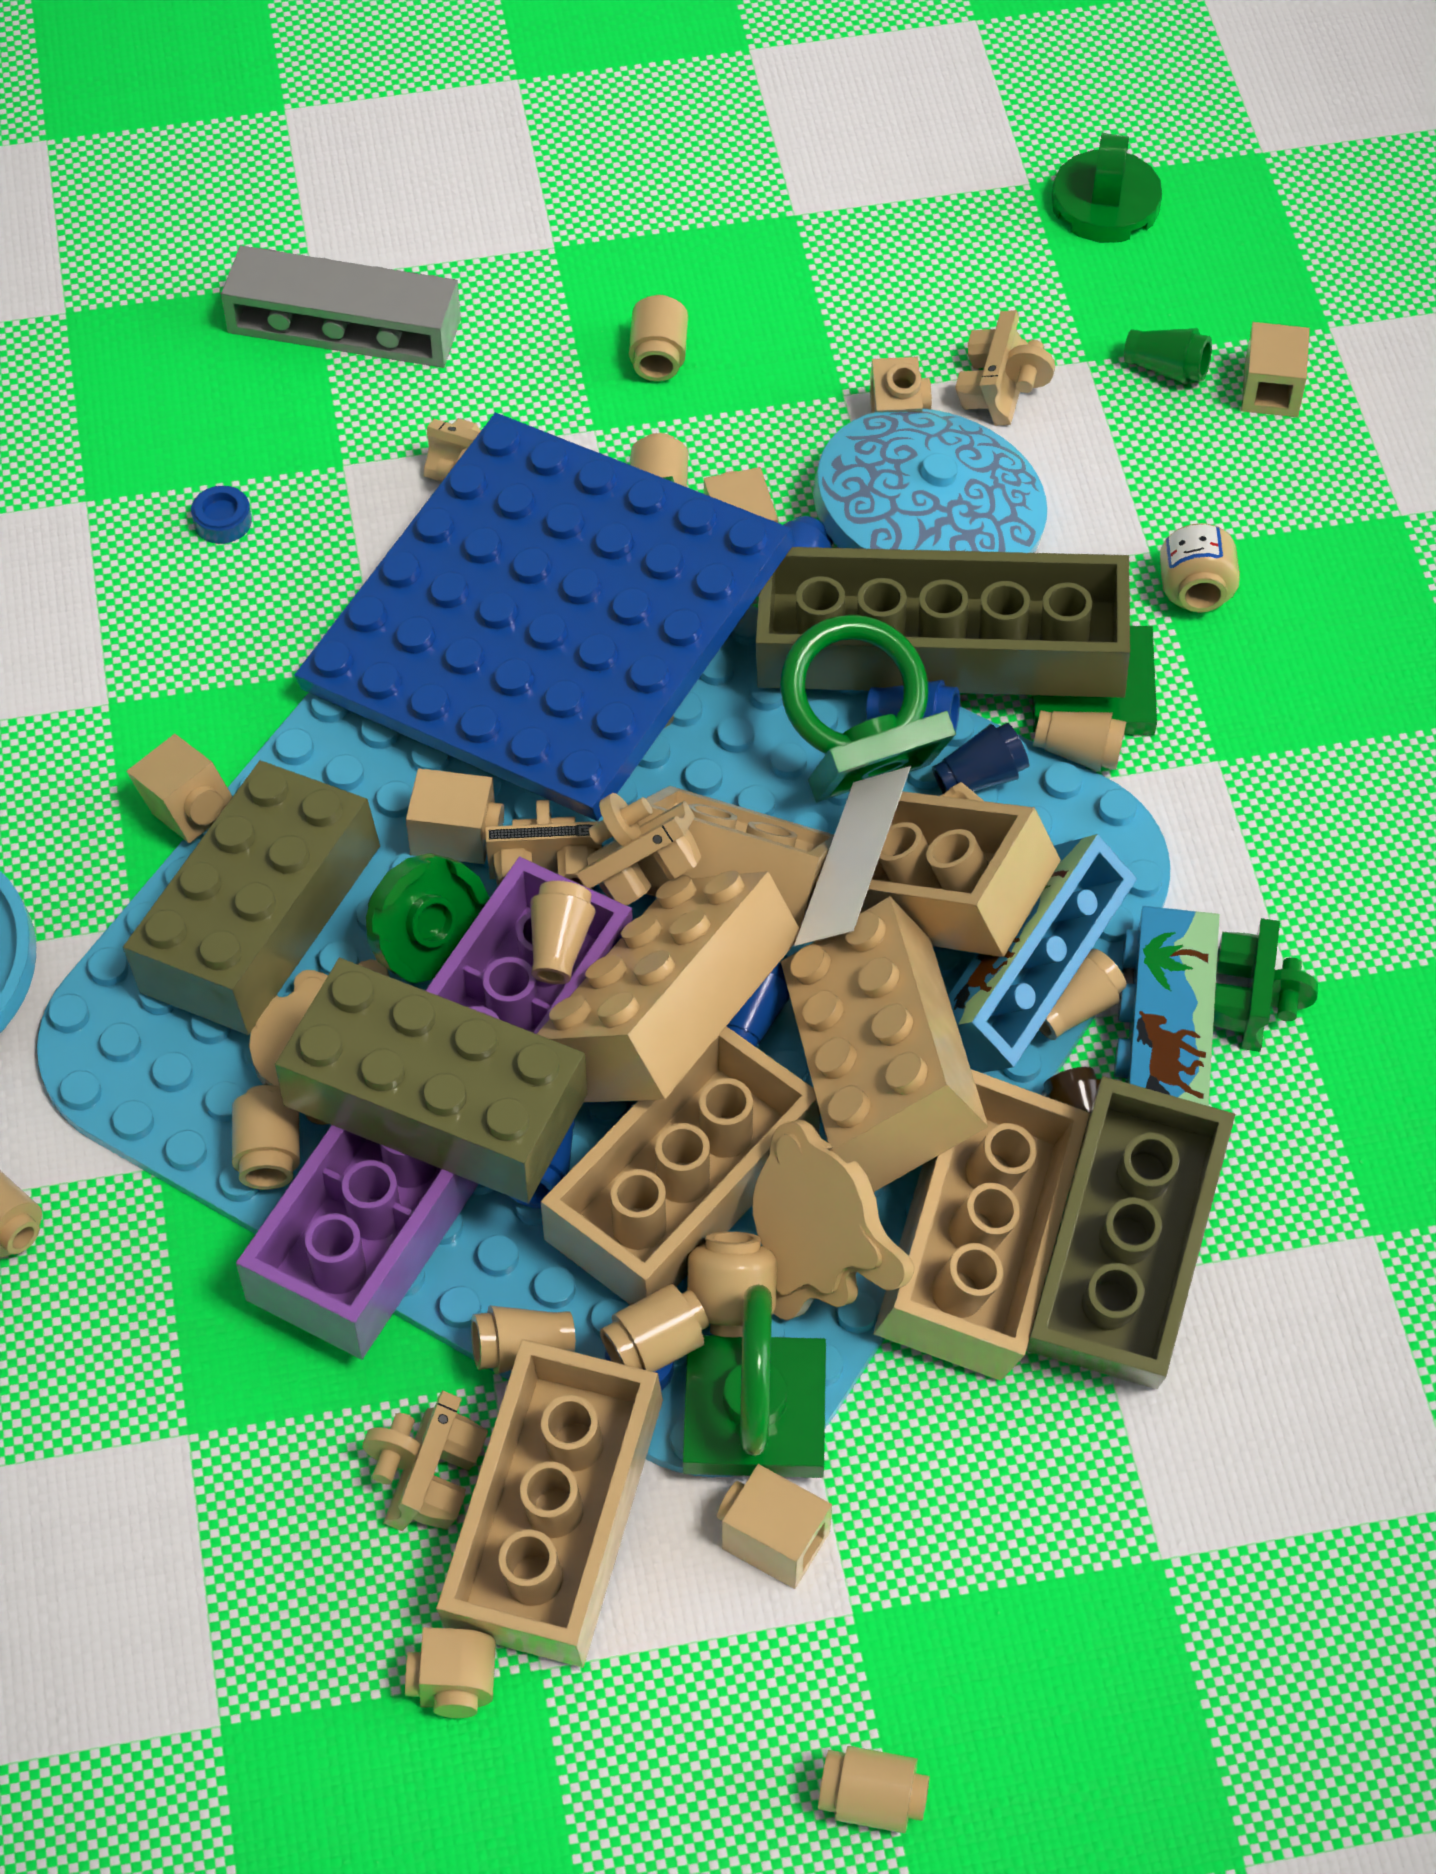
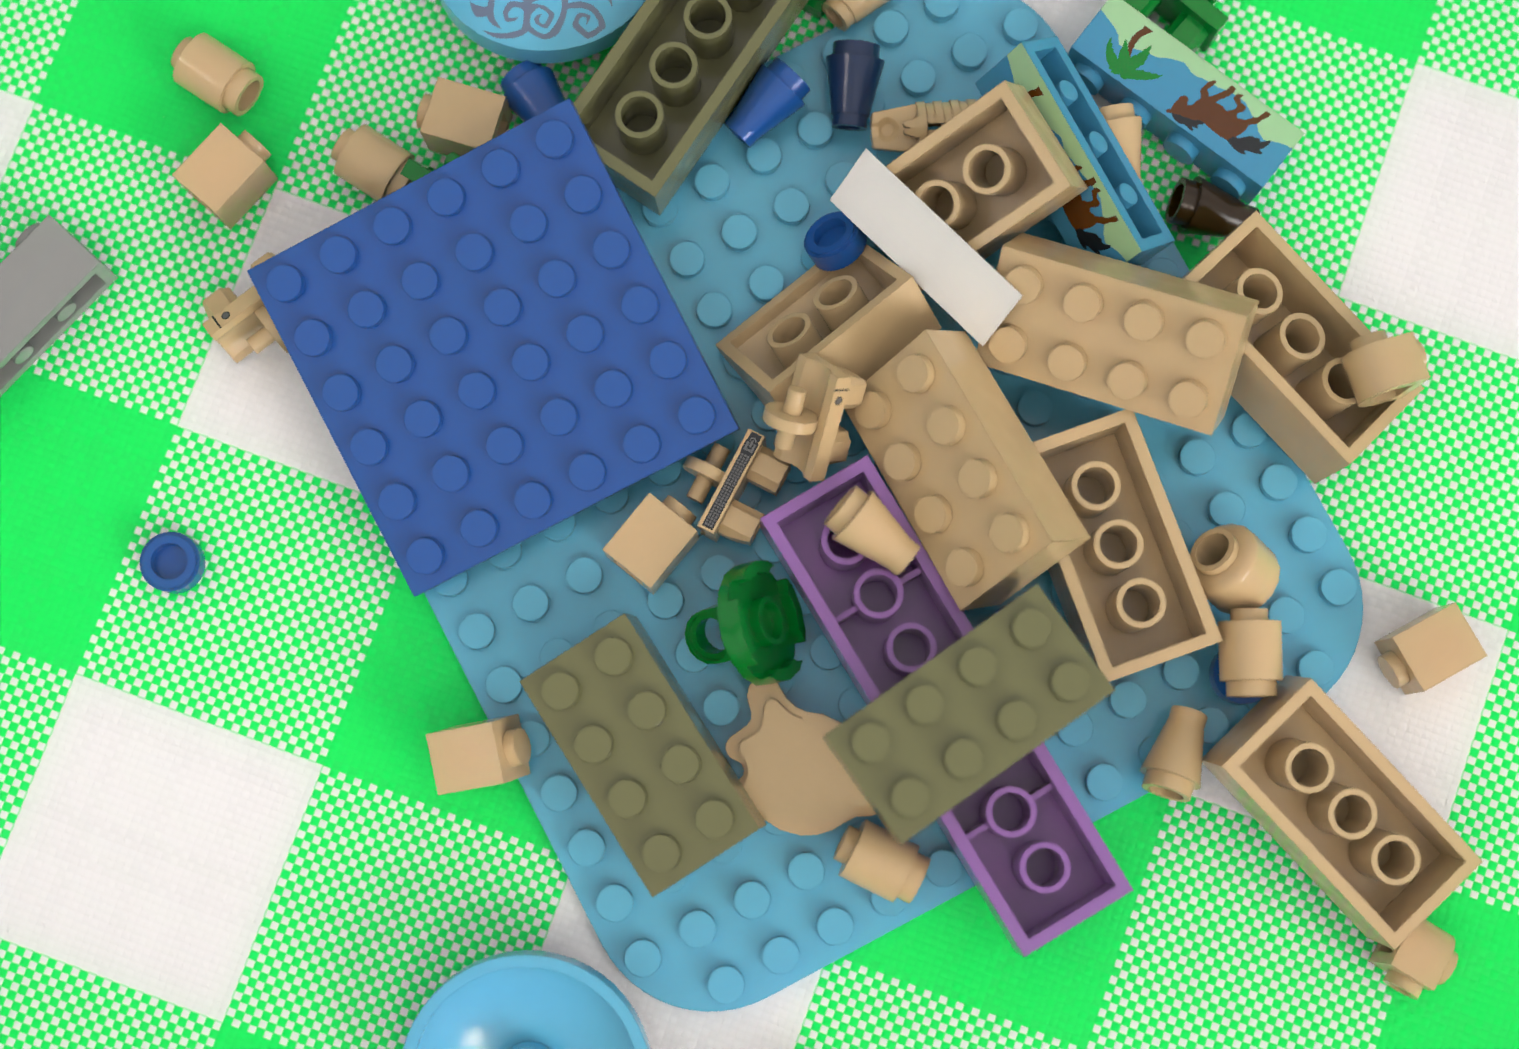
camera: 60 degrees left, 25 degrees up
(440, 1436) = (1227, 887): tan hips -> none
(577, 383) = (227, 174): none -> tan brick
(755, 1400) = (1337, 608): green tile -> none
(818, 816) = (834, 242): none -> blue tile
(821, 1224) = (1249, 474): tan tile -> none
(878, 743) = (814, 162): green tile -> none
(1005, 1281) = (1384, 367): none -> tan plate
(1131, 1232) = (1368, 232): olive brick -> none

